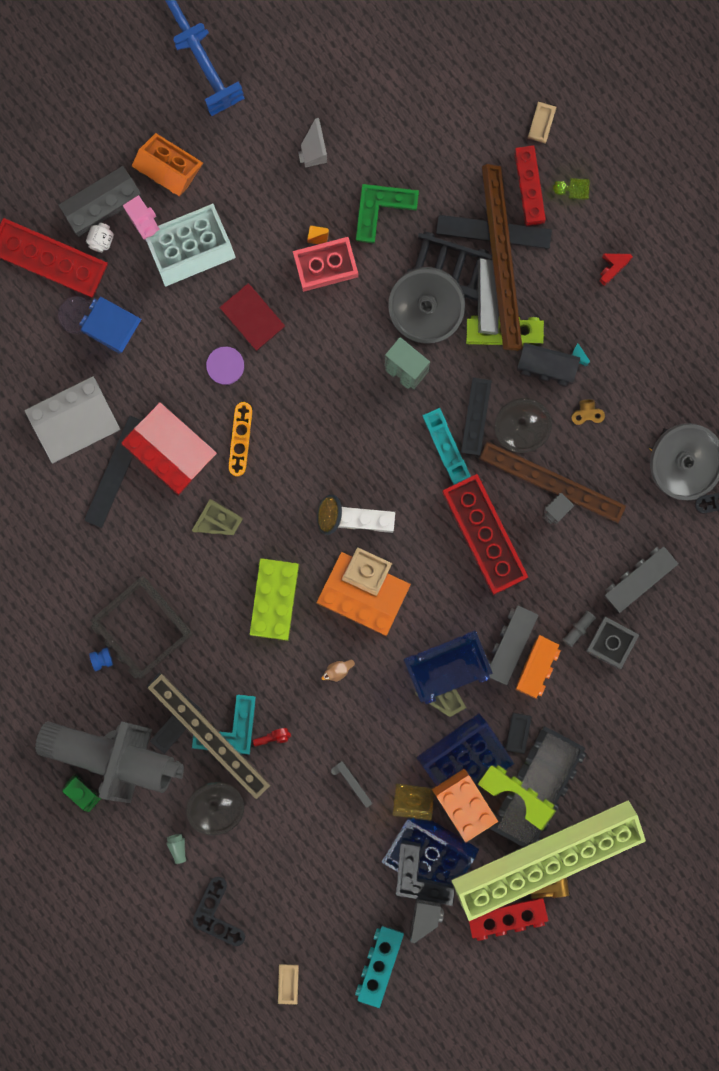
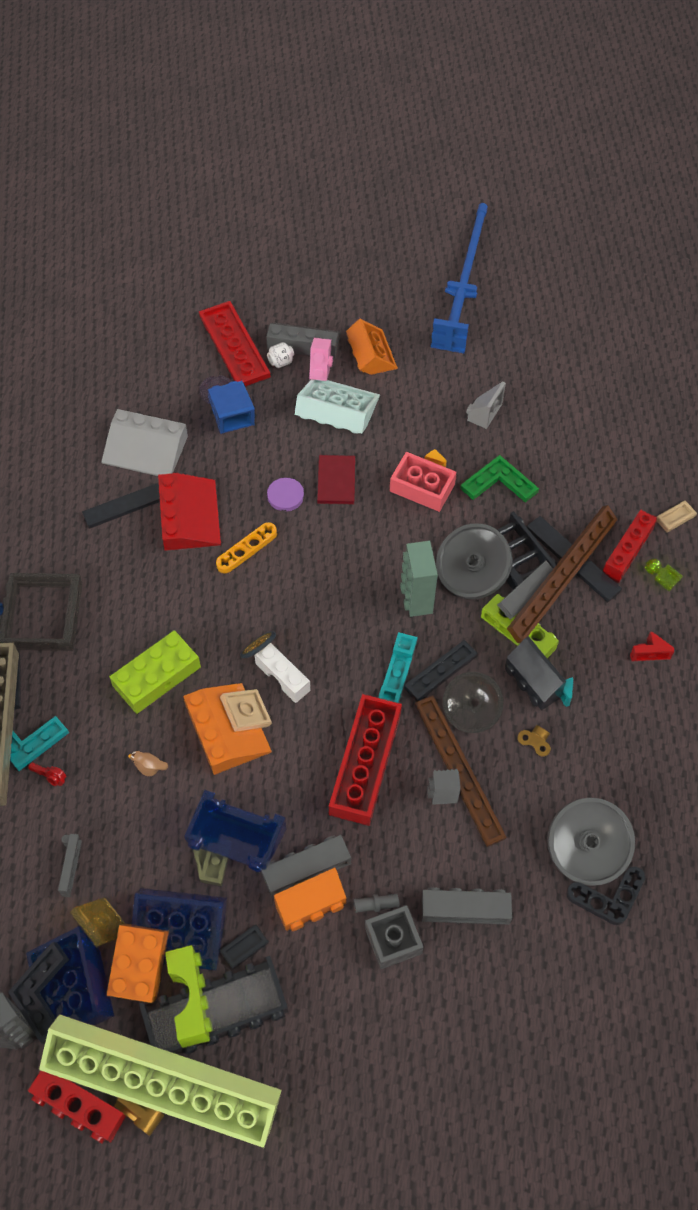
camera: 40 degrees right, 25 degrees down
(217, 520) = (173, 585): olive wing -> none

